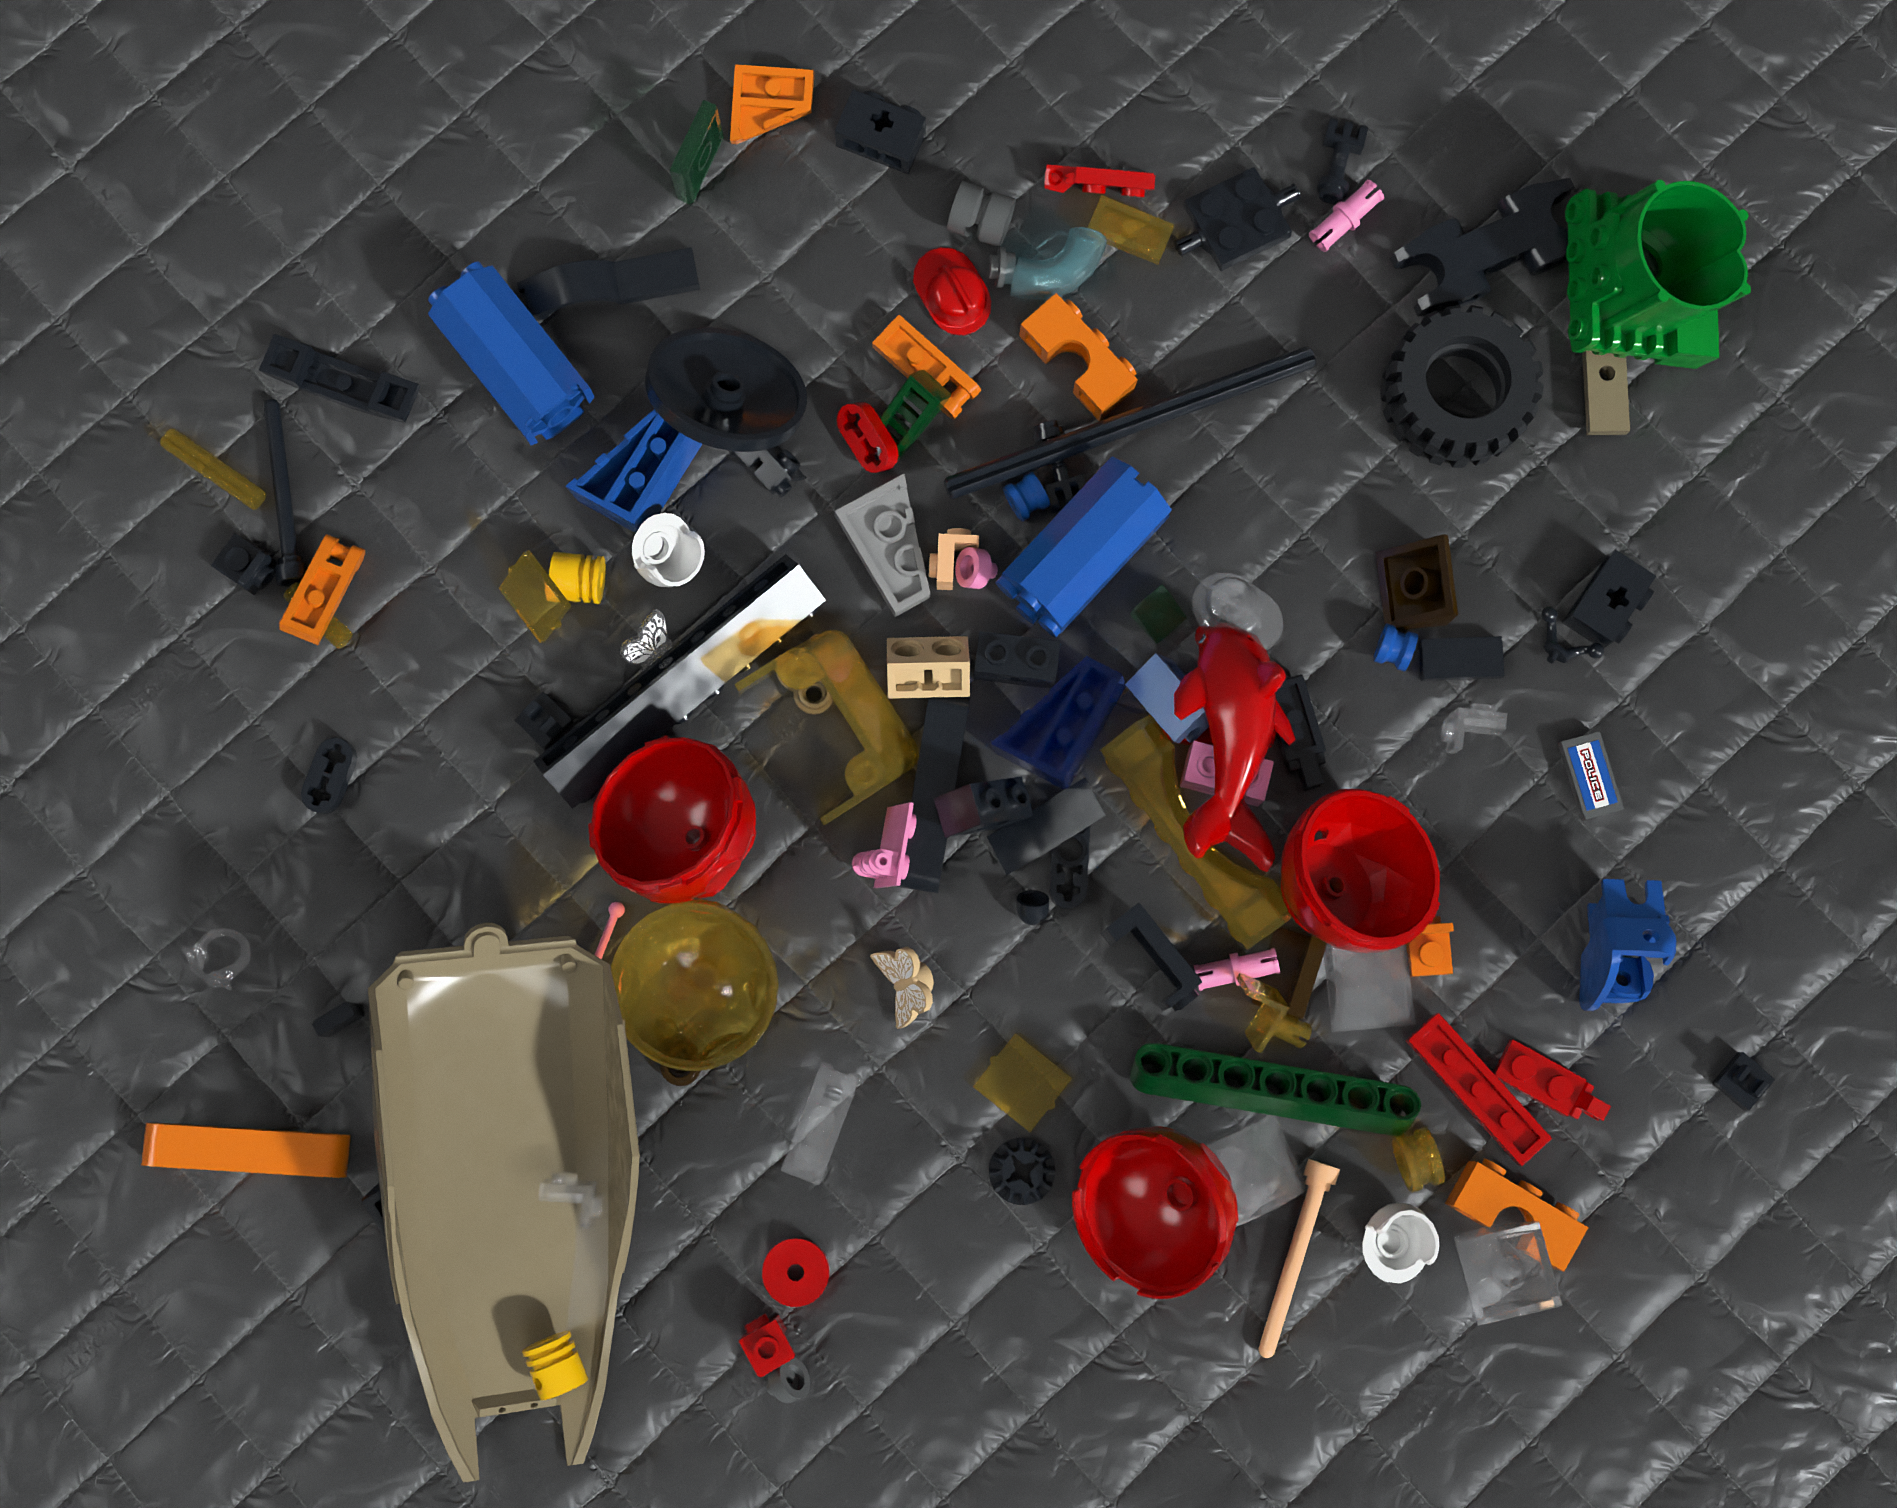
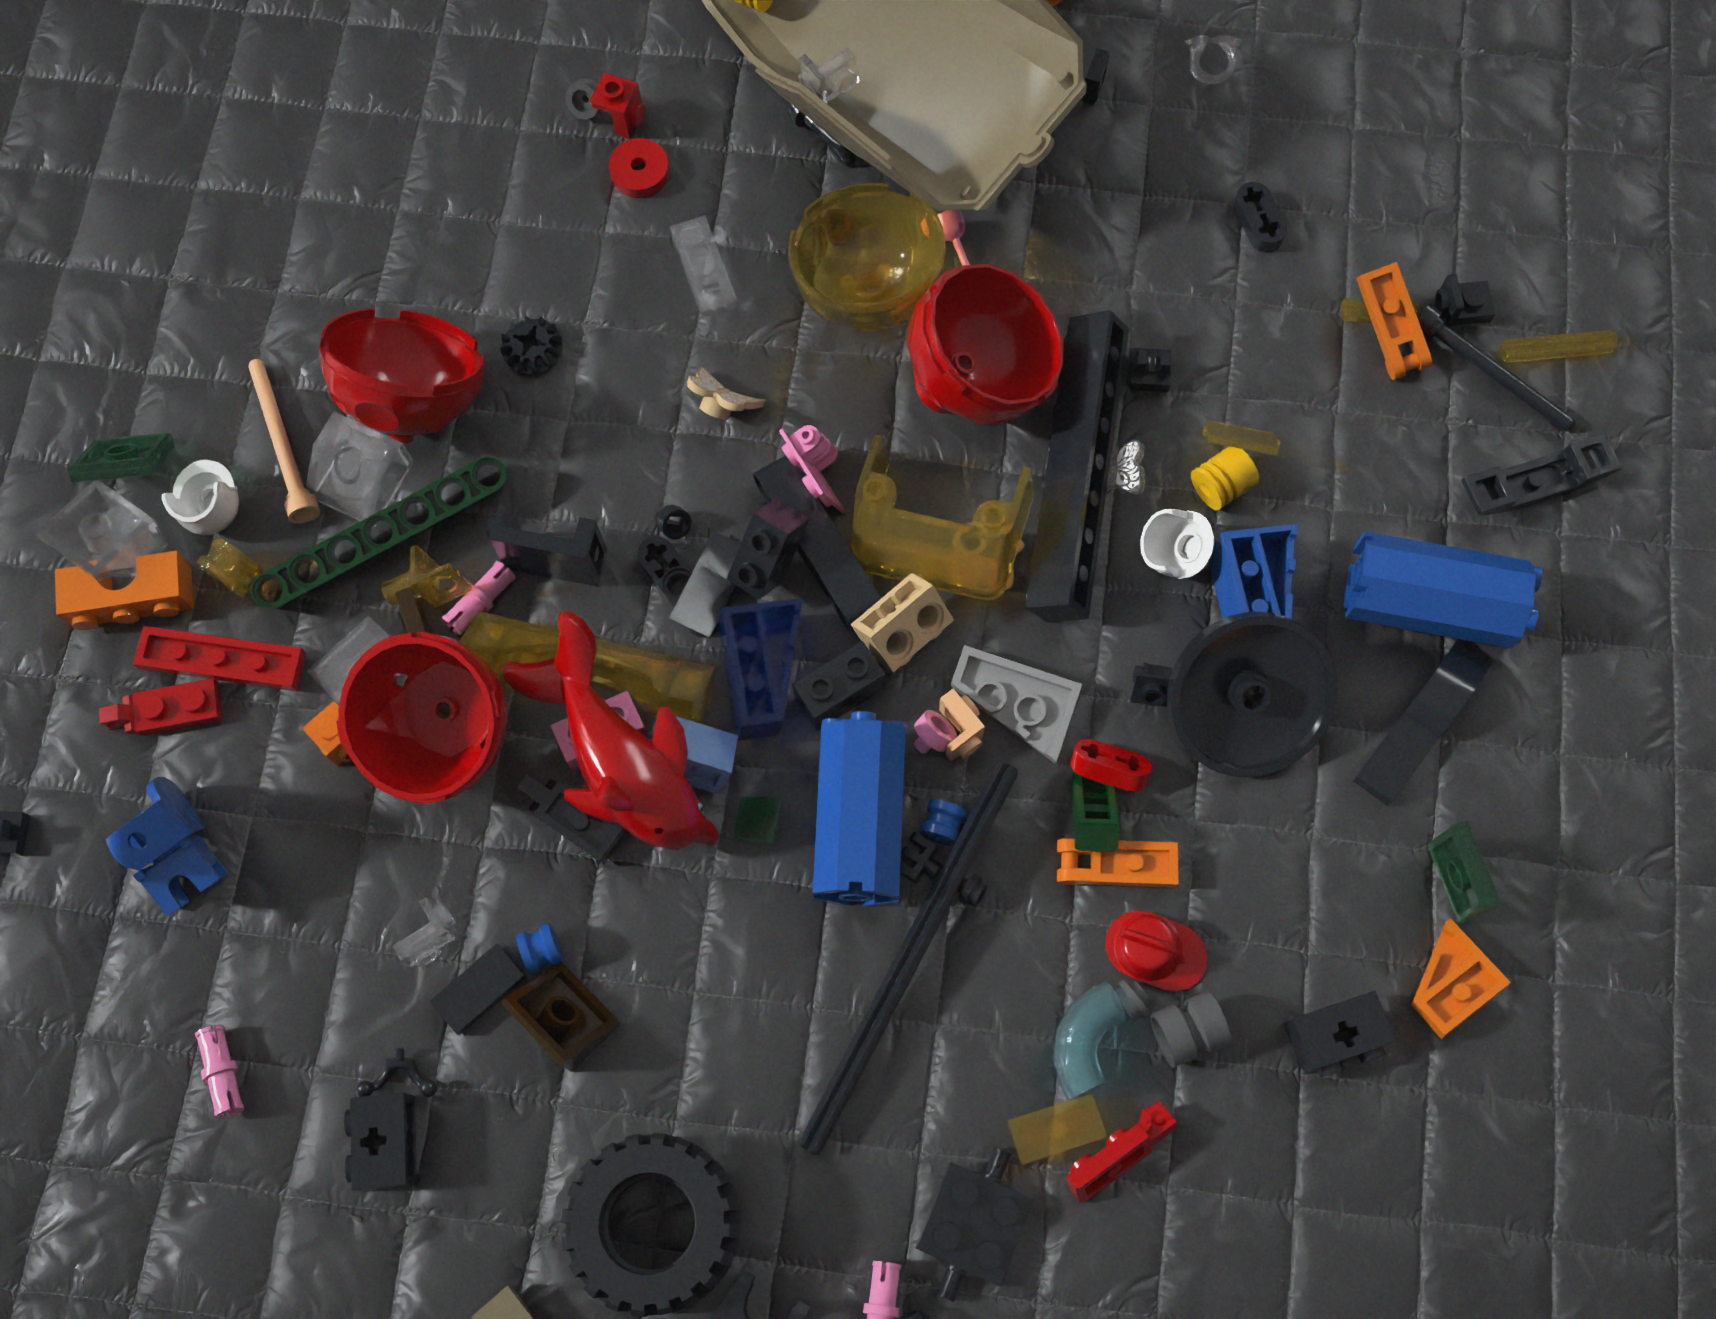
camera: 145 degrees right, 10 degrees down
(1022, 1082) = (580, 404): clear yellow piece -> none
(1059, 329) = (1040, 986): orange arch -> none
(1237, 601) = (696, 877): clear piece -> none
(1442, 1338) = (121, 457): none -> clear green tile
(1590, 776) = (296, 979): tile -> none
(1694, 749) = (219, 1071): none -> bright pink pin

